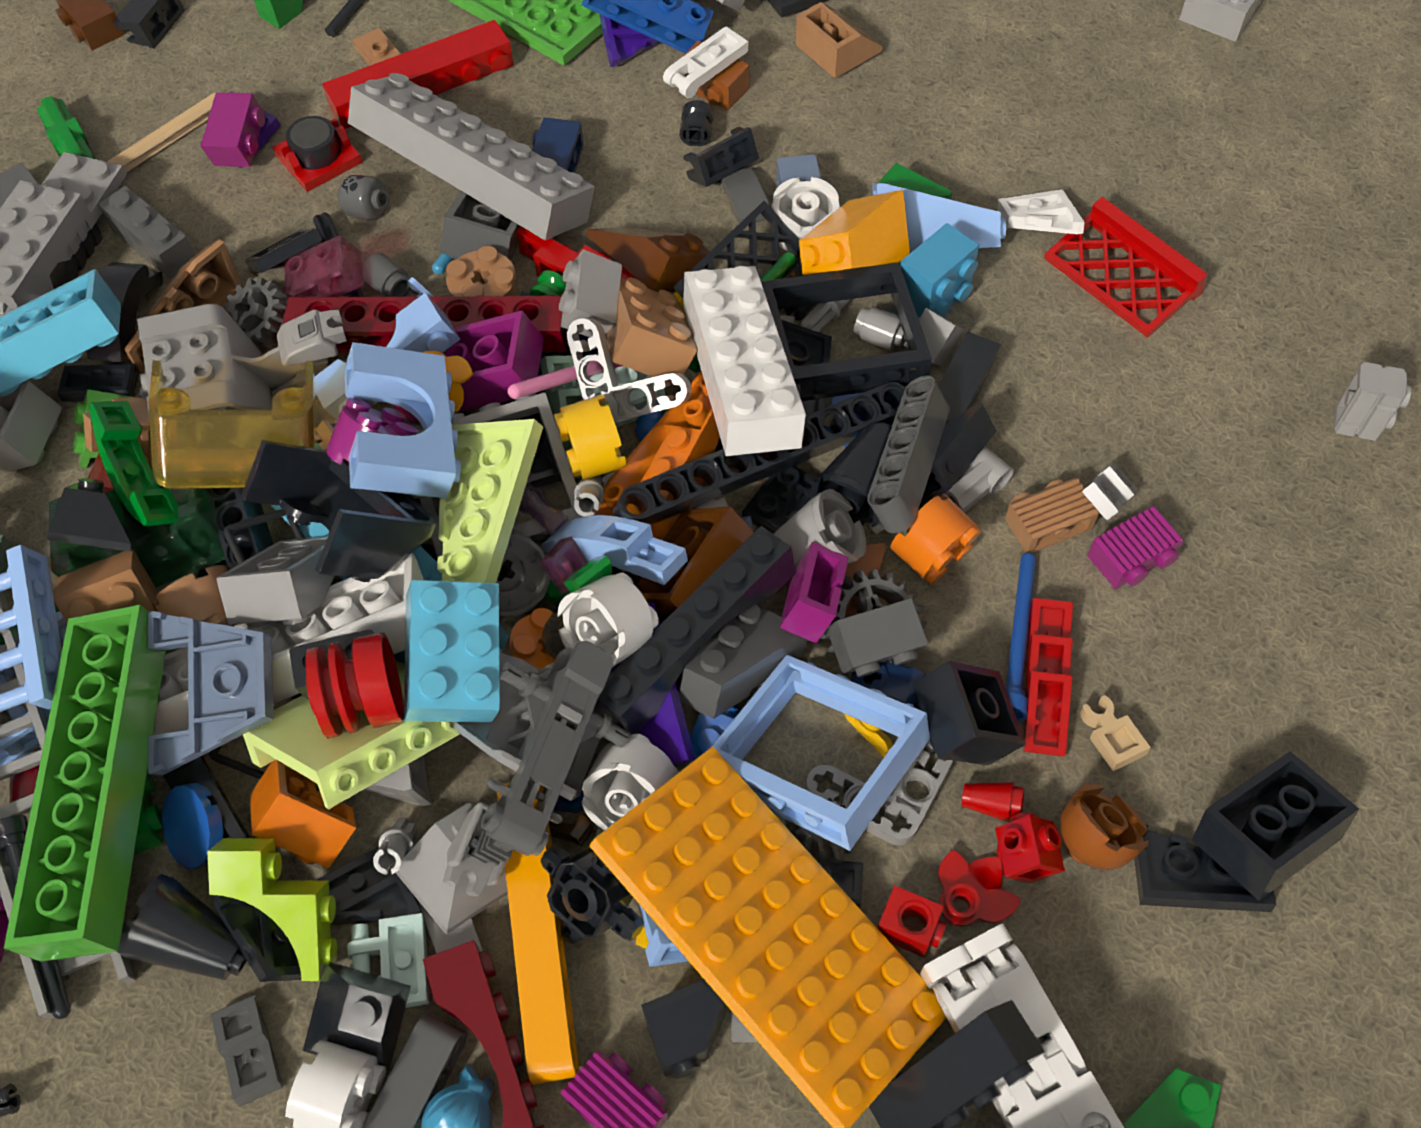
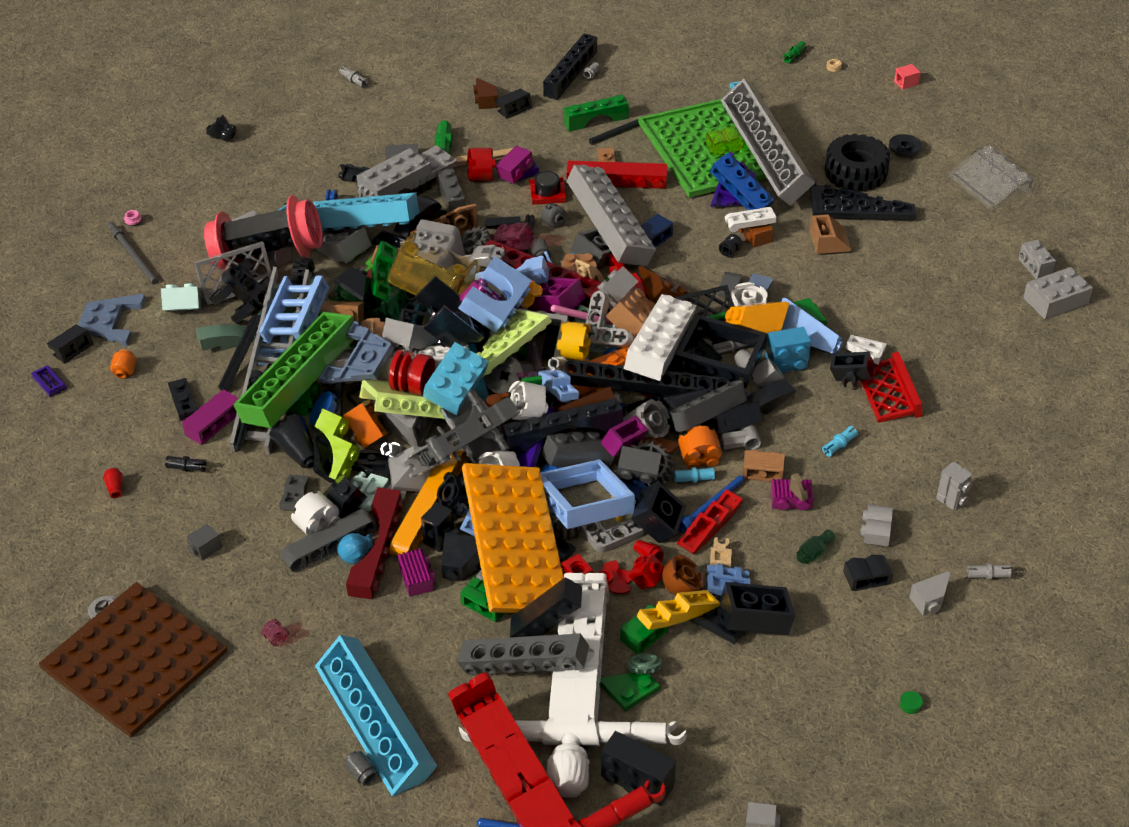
camera: 30 degrees right, 15 degrees down
(169, 155) = (480, 164): none -> red brick
(518, 284) = (588, 270): none -> tan slope
(601, 979) = (435, 524): none -> black brick
(722, 157) = (730, 263): black hinge -> none
(771, 1093) = (474, 597): none -> green brick
(954, 594) = (693, 475): none -> medium azure pin
(1055, 259) = (852, 367): none -> black brick
(1109, 490) = (801, 465): slope -> none
(1109, 978) = (638, 636): none -> green brick
(1127, 403) = (840, 441): none -> medium azure pin
(1154, 912) = (682, 608): none -> yellow slope
(1158, 1041) = (644, 663): none -> sand green gear
(1159, 537) = (797, 488): none -> dark tan tile
(1175, 795) = (719, 575): none -> medium blue plate
(1246, 632) = (814, 547): none -> clear green arm
(1306, 534) = (877, 525): none -> light grey brick
(1361, 636) = (867, 572): none -> black brick

